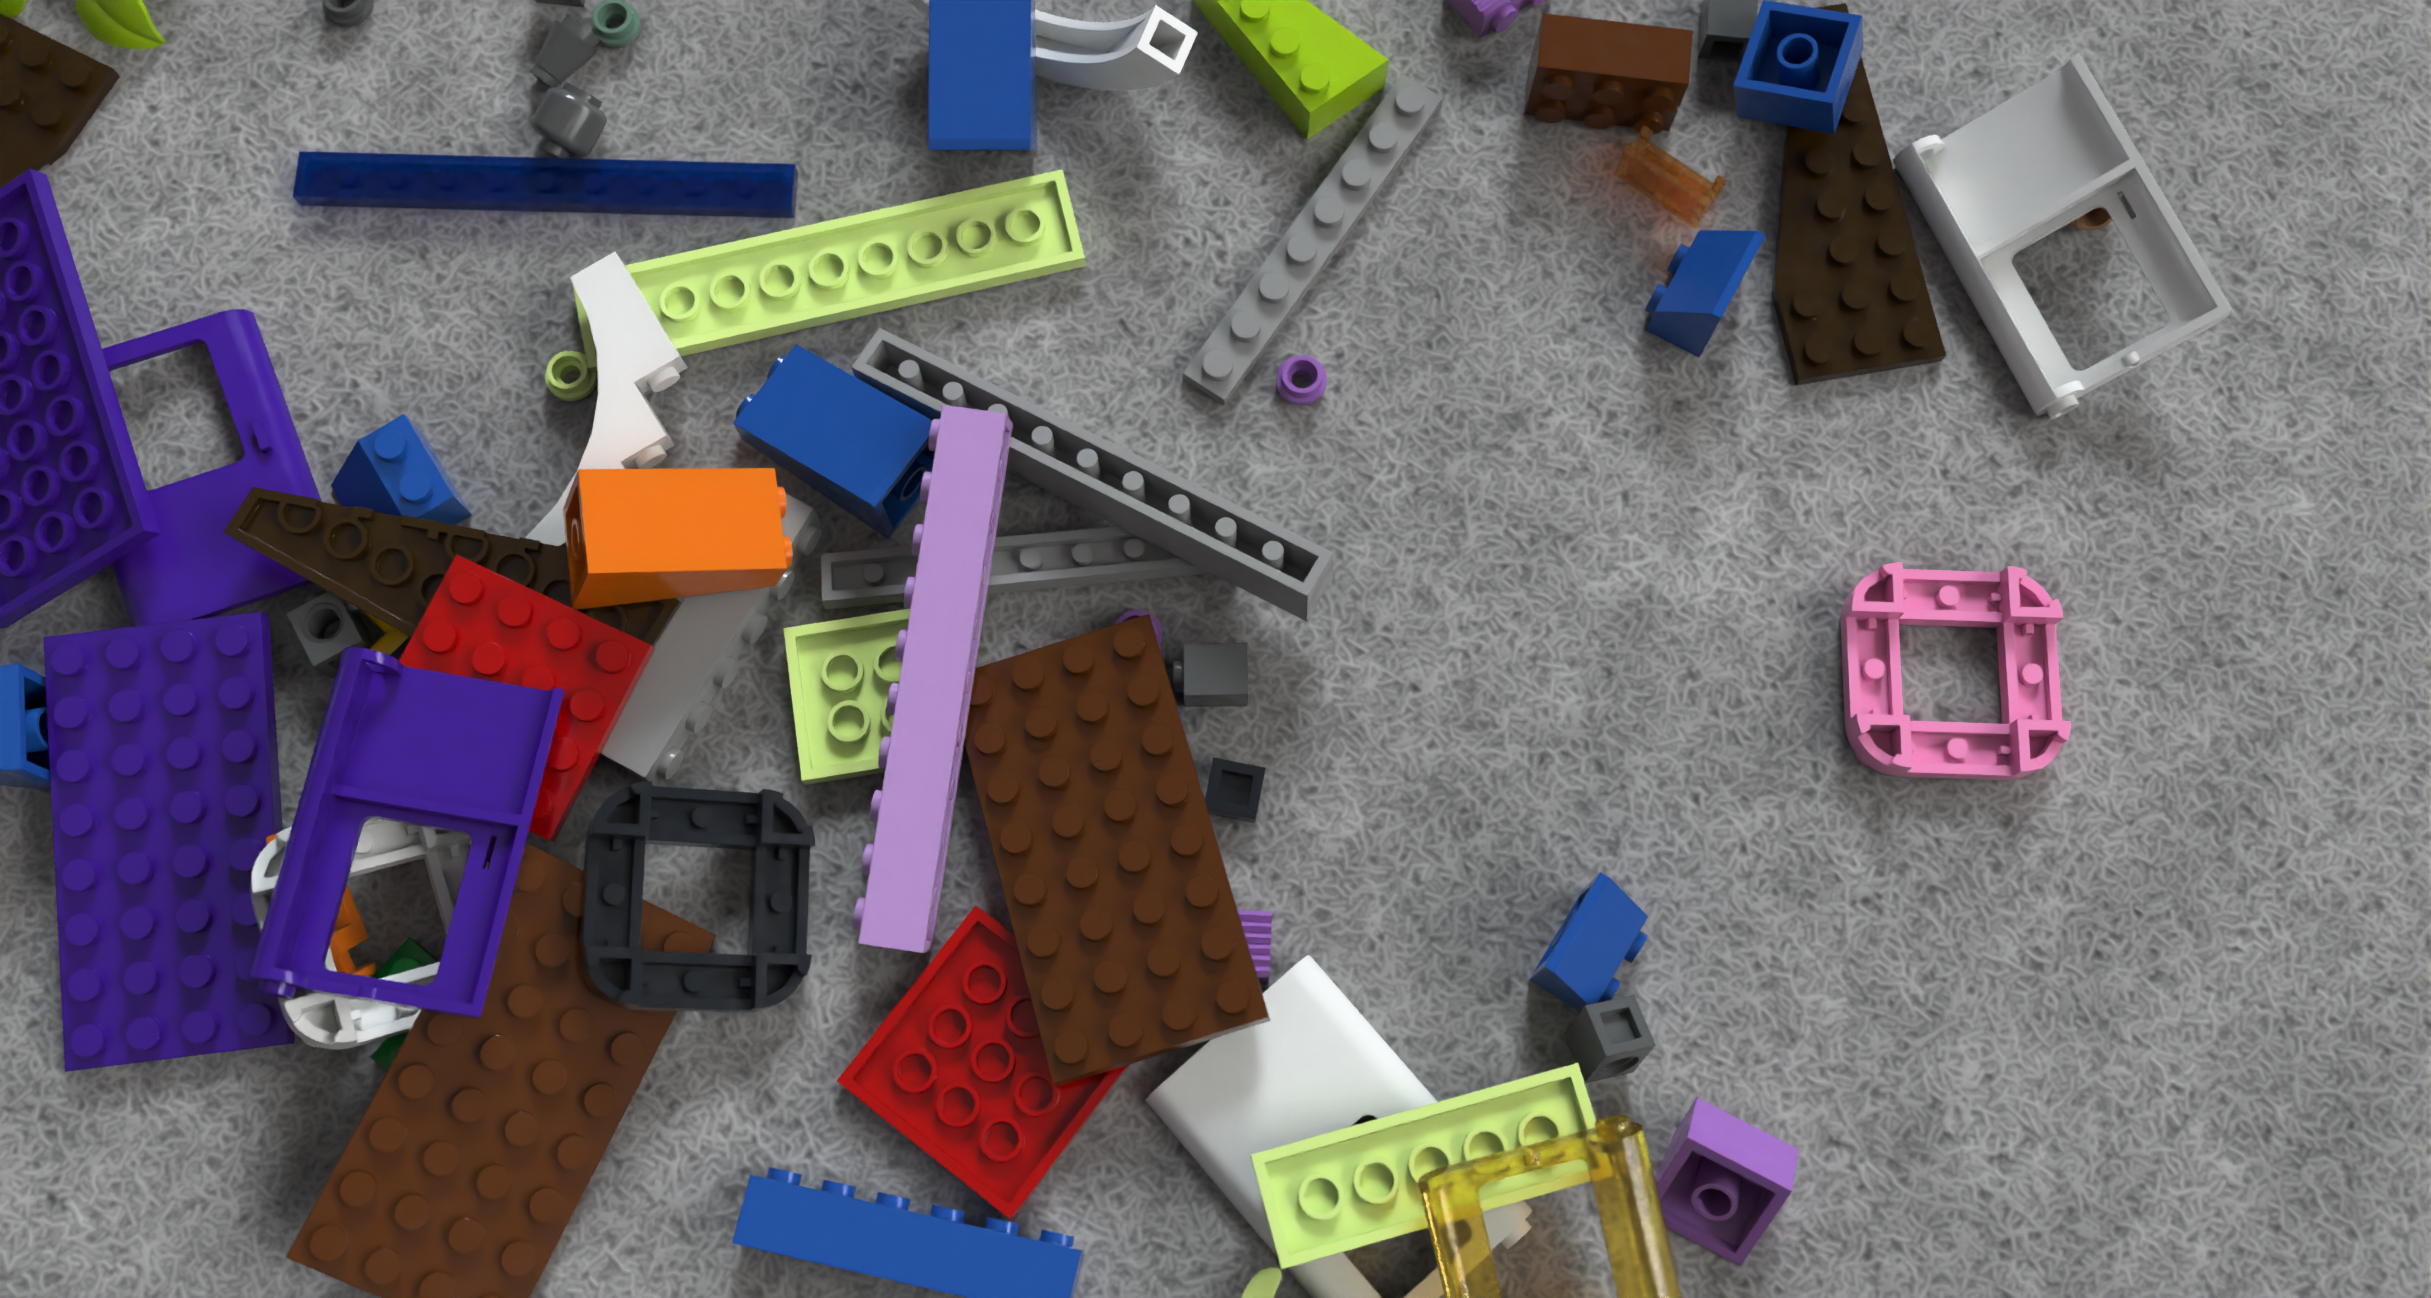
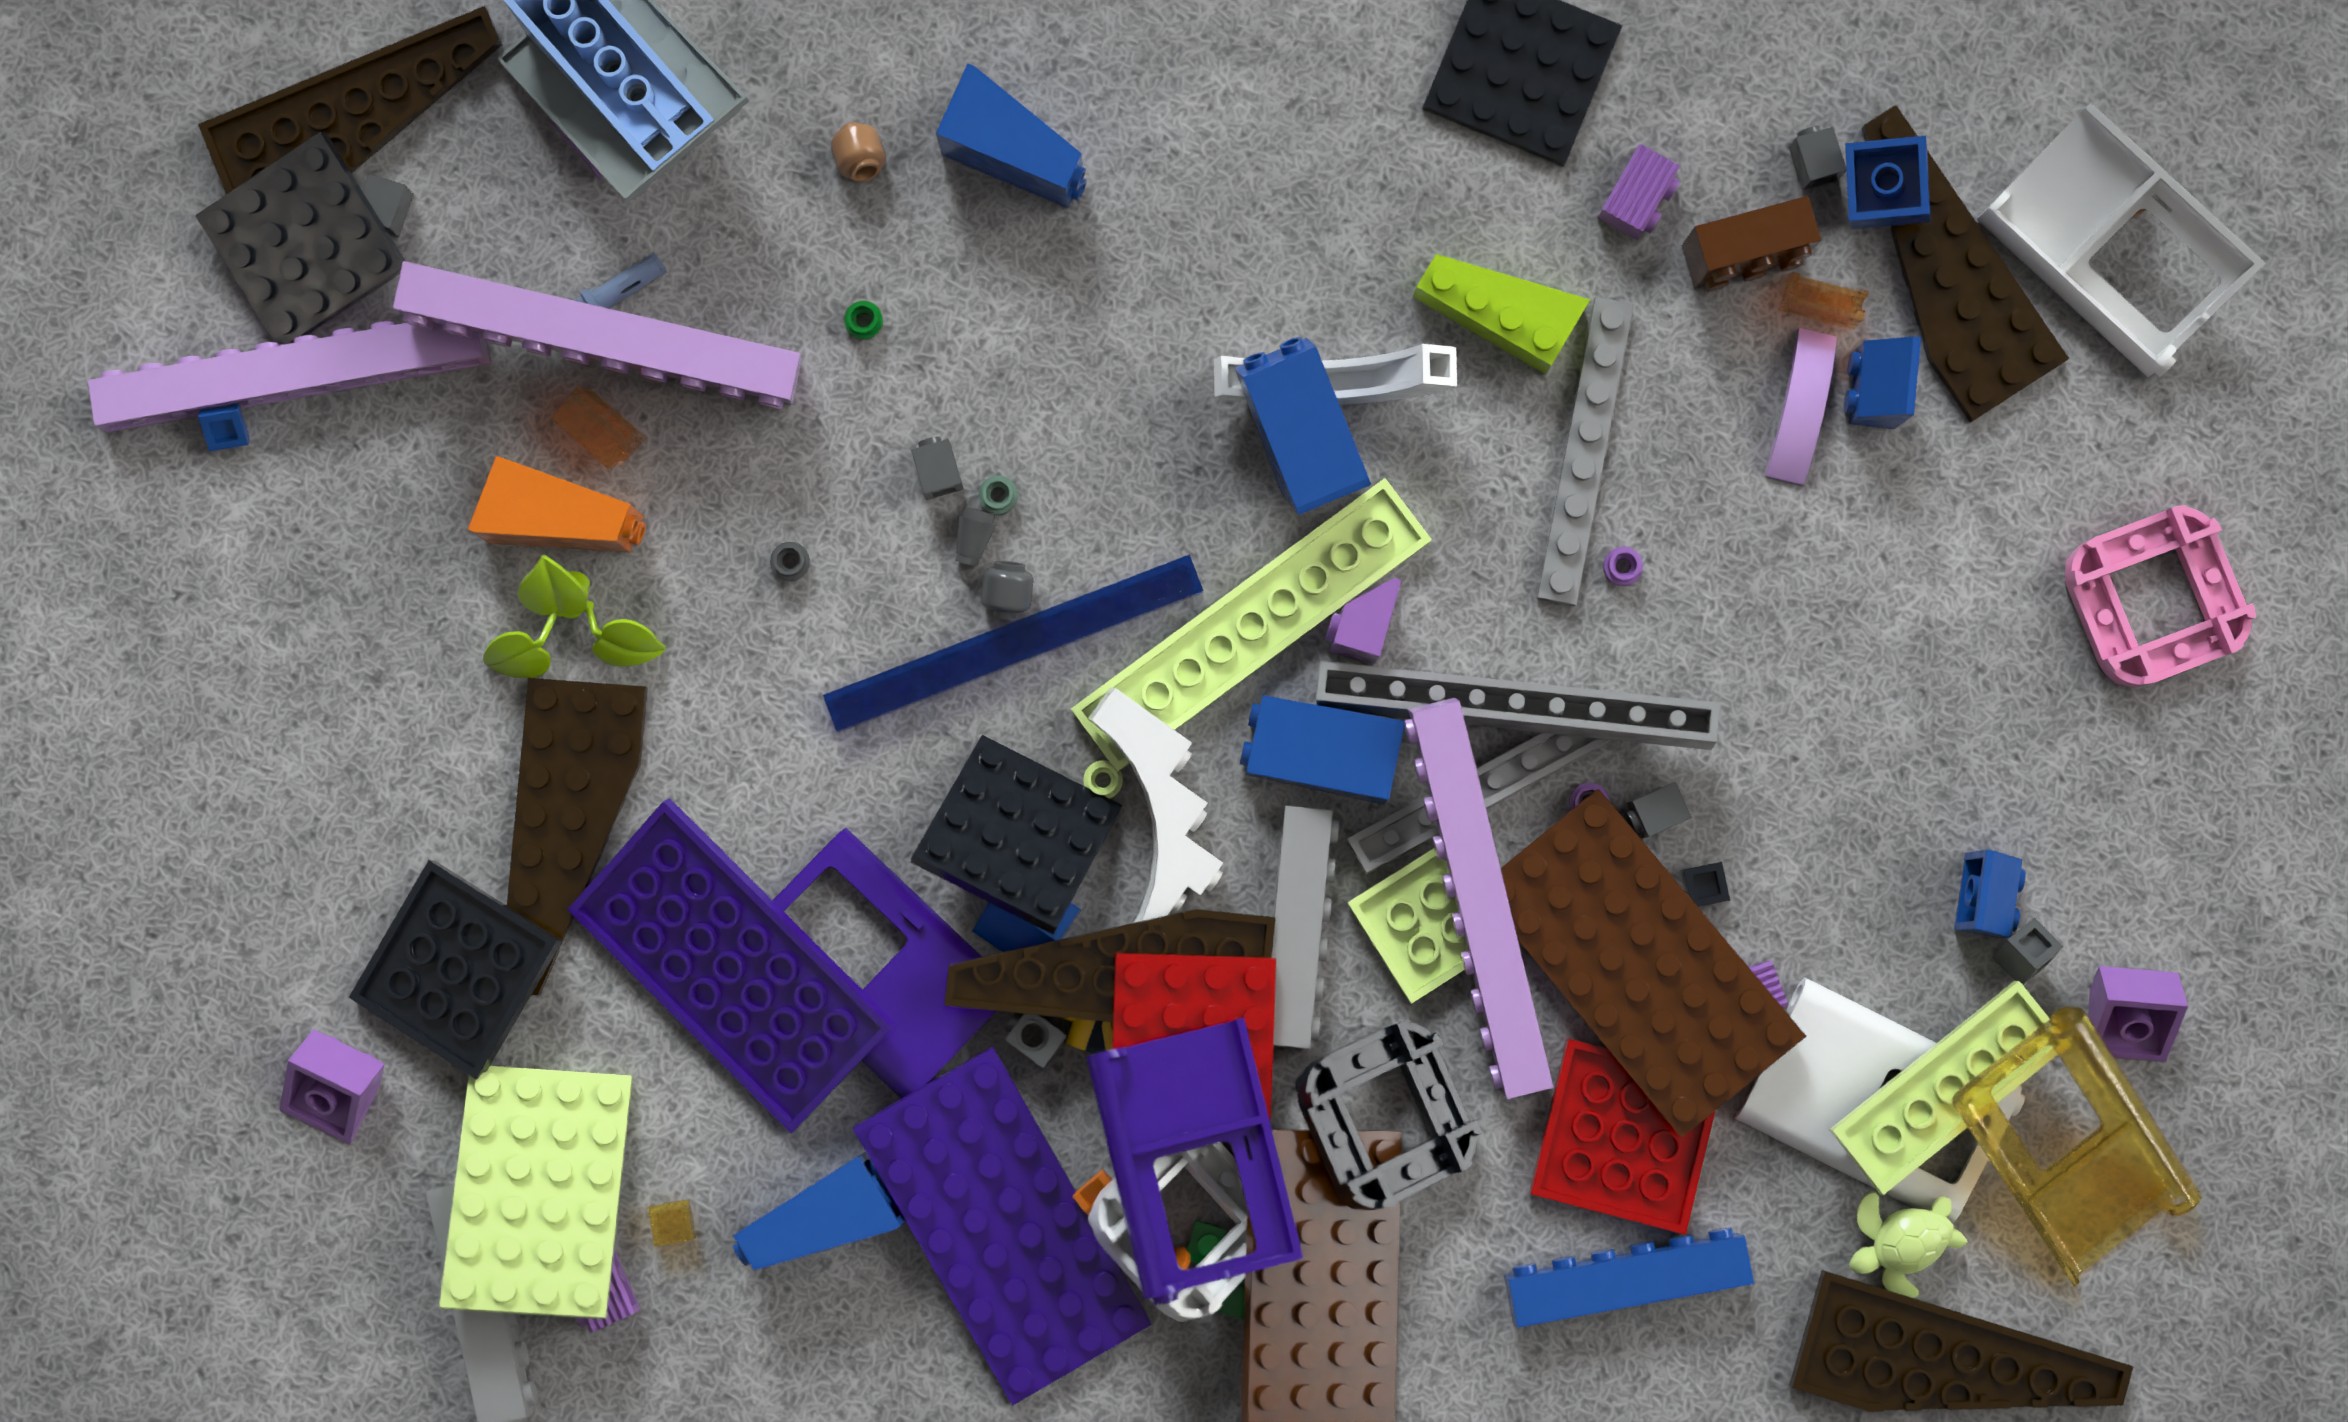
camera: 25 degrees left, 10 degrees up
(424, 383) = (1016, 834): none -> black plate
(673, 533) = (1257, 877): orange slope -> none
(958, 306) = (1364, 623): none -> medium lavender slope
(1593, 287) = (1802, 406): none -> lavender slope

